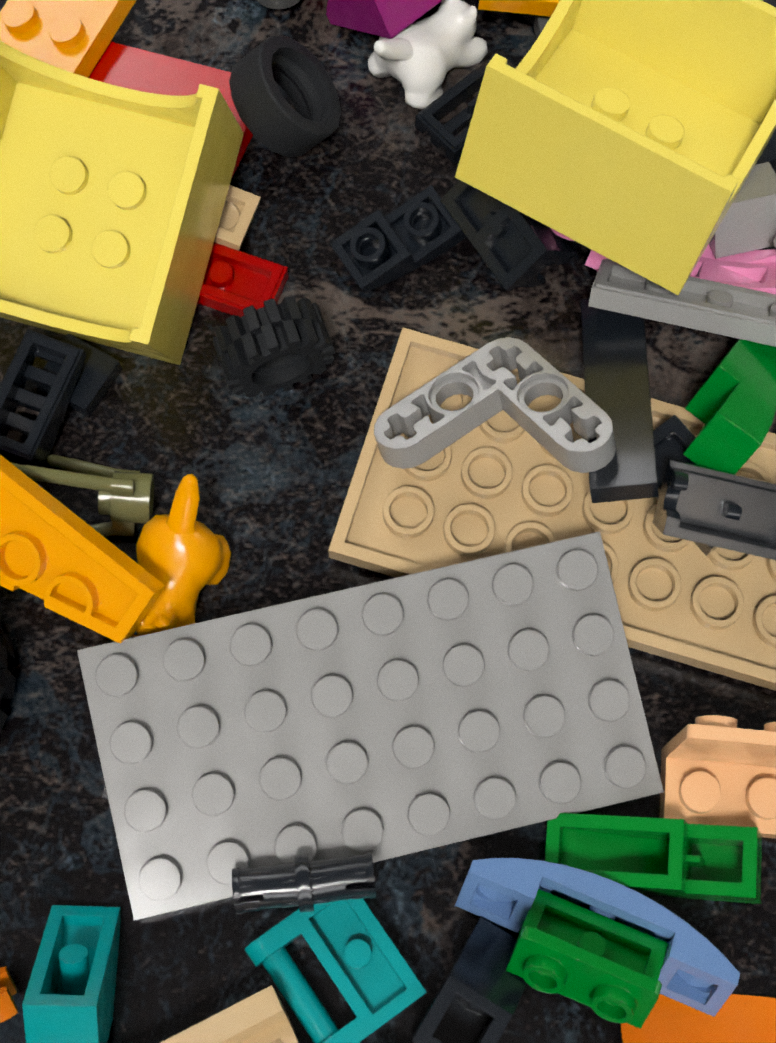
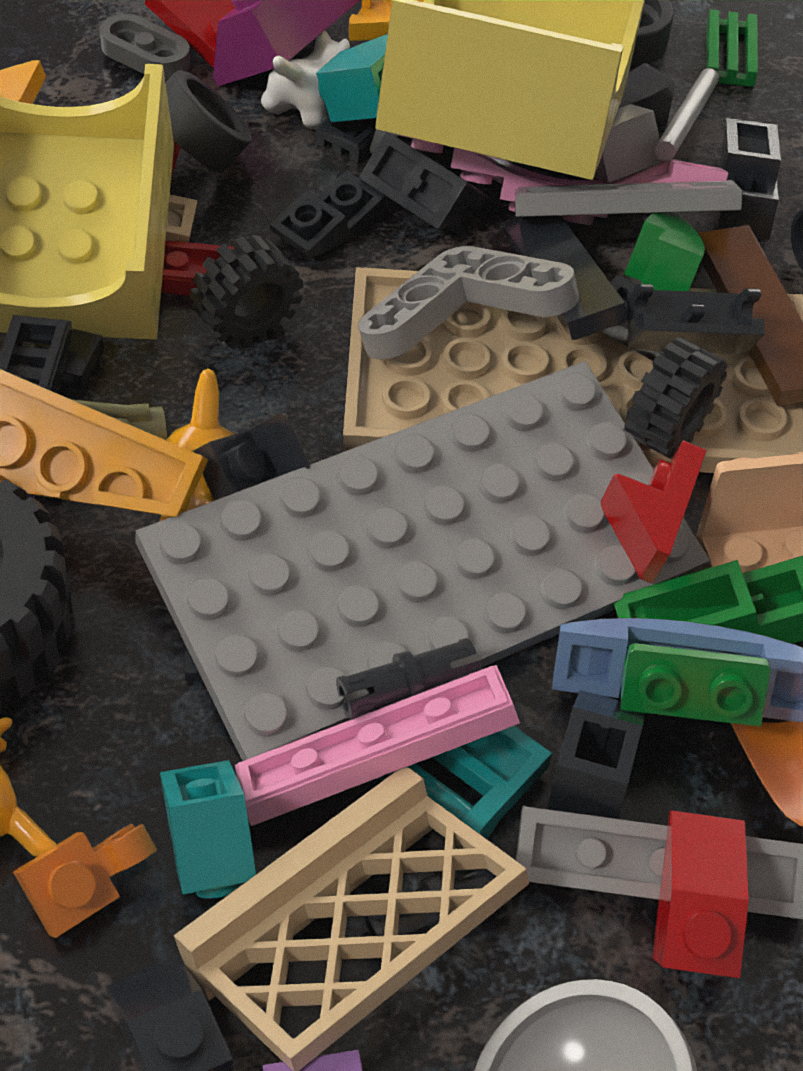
camera: 15 degrees left, 20 degrees down
(220, 578) = (252, 457): none -> black slope
(254, 951) = (375, 744): none -> bright pink tile
(458, 67) = (353, 81): none -> teal slope
(608, 764) = (650, 515): none -> red slope
(679, 607) = (675, 397): none -> black tyre

